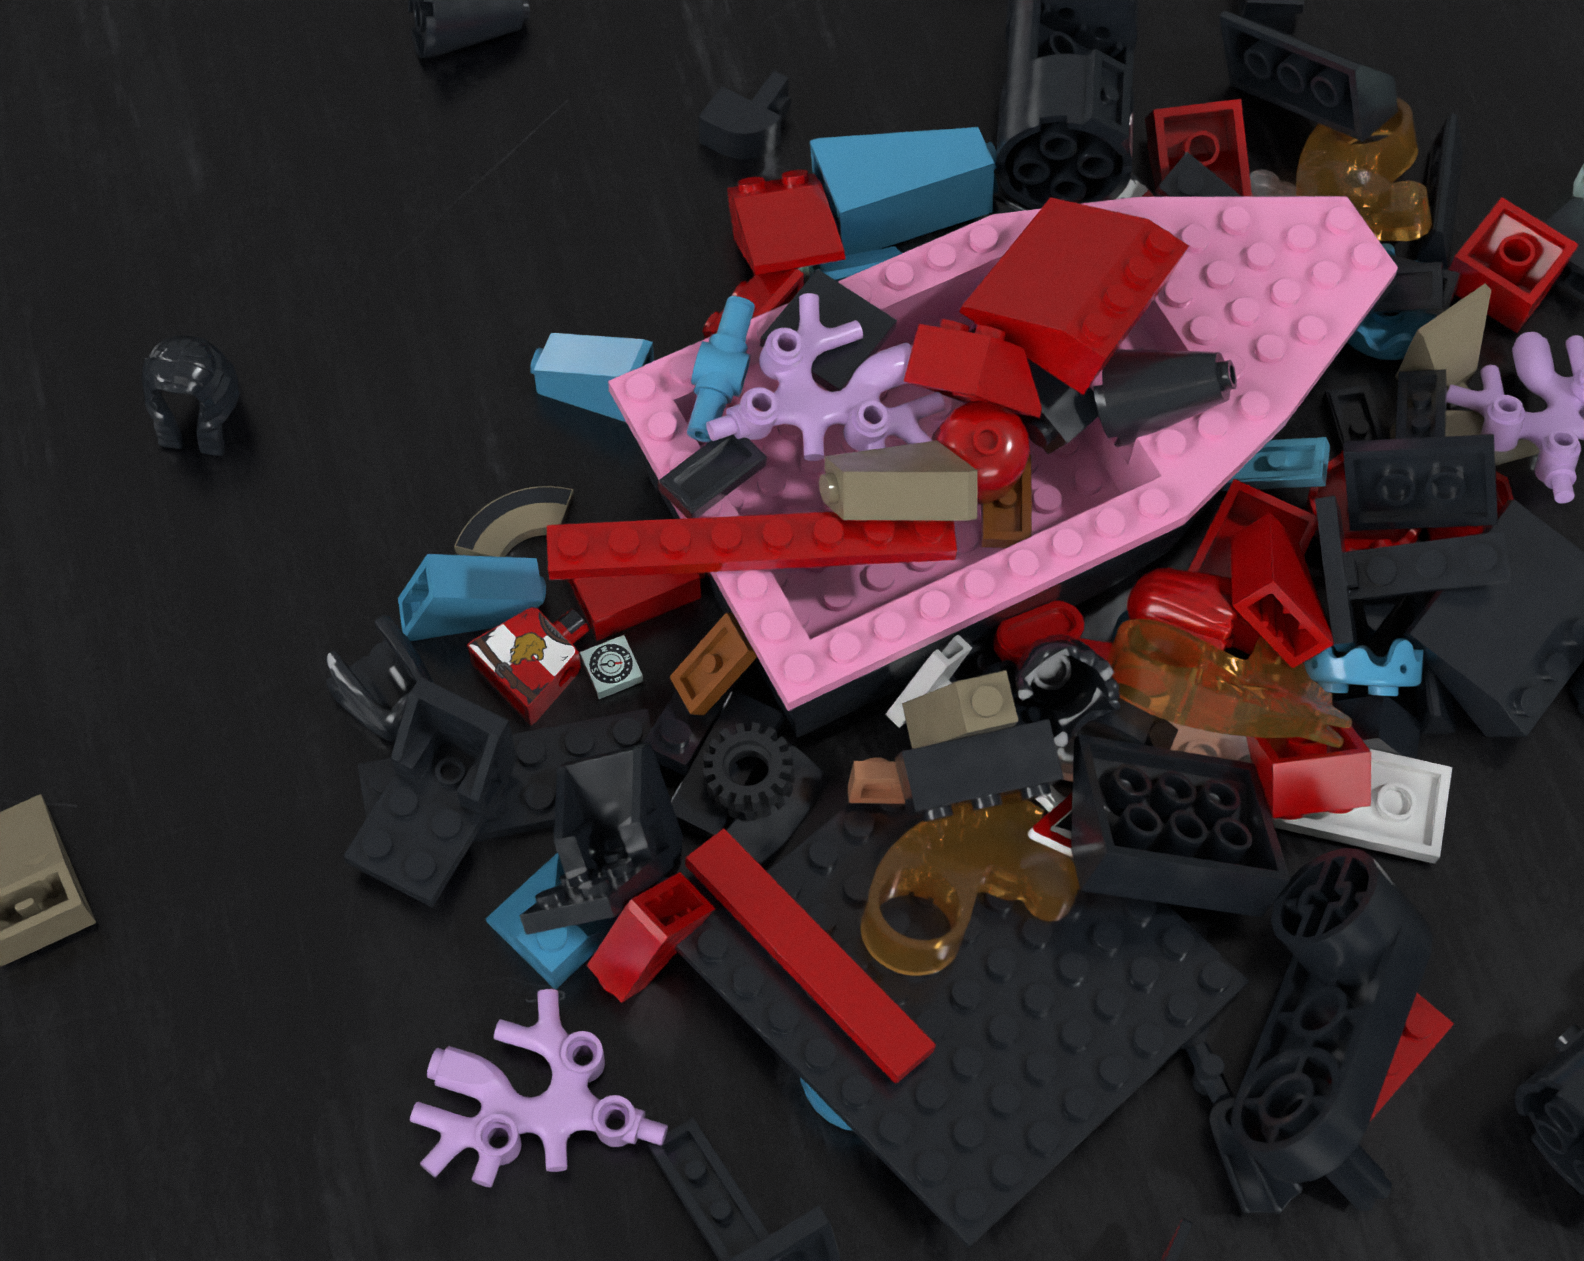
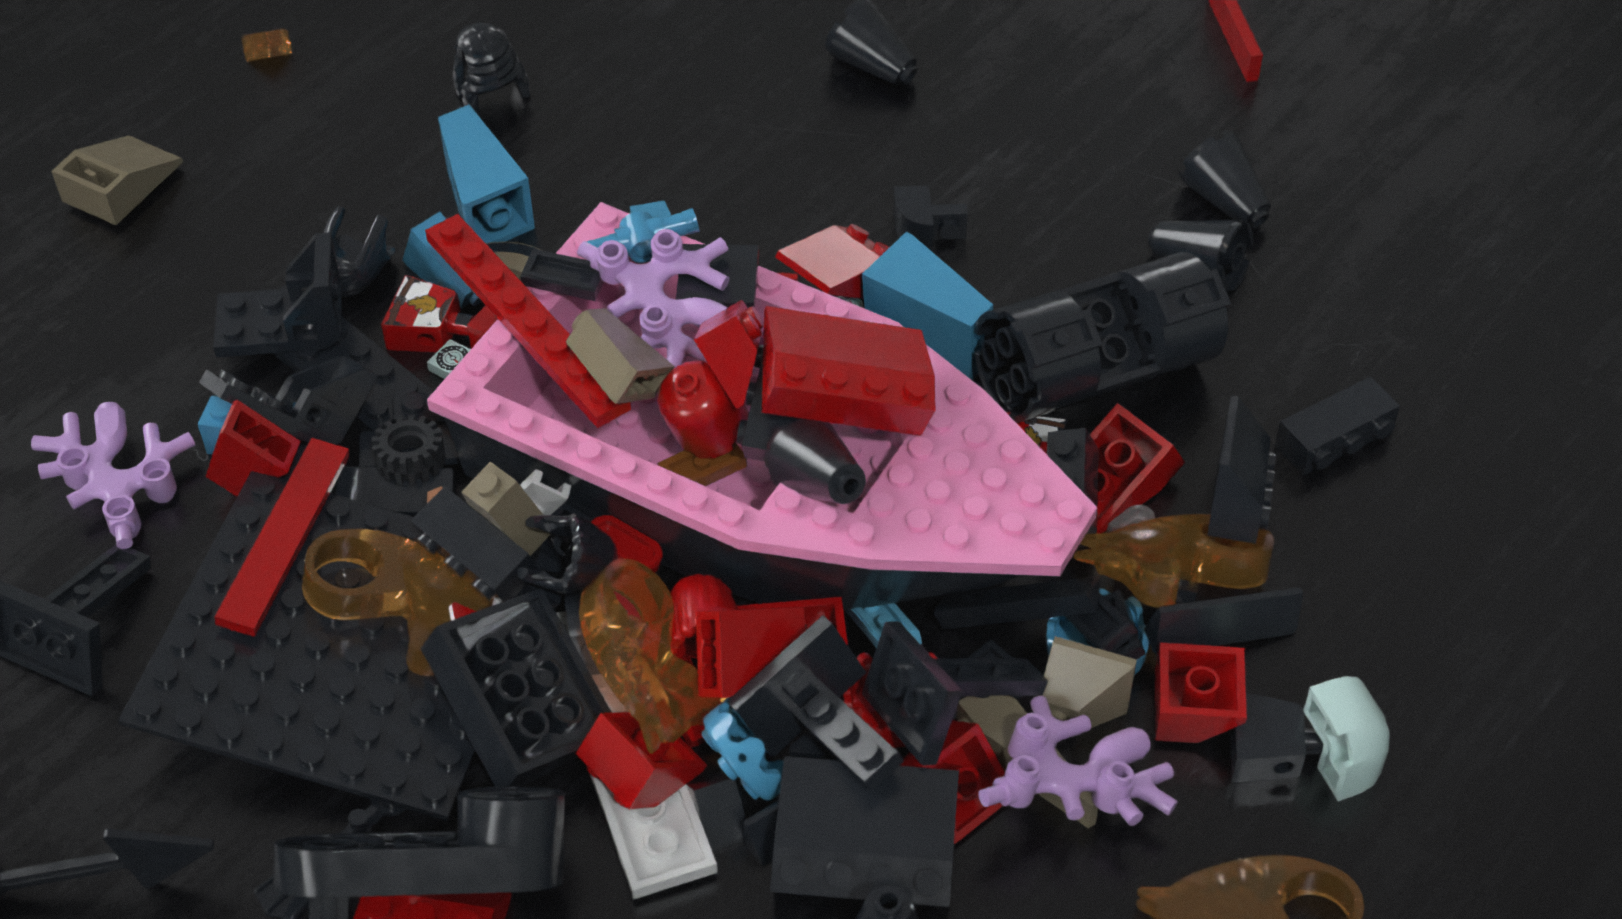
camera: 60 degrees right, 15 degrees down
(367, 489) = (485, 179): none -> dark azure slope

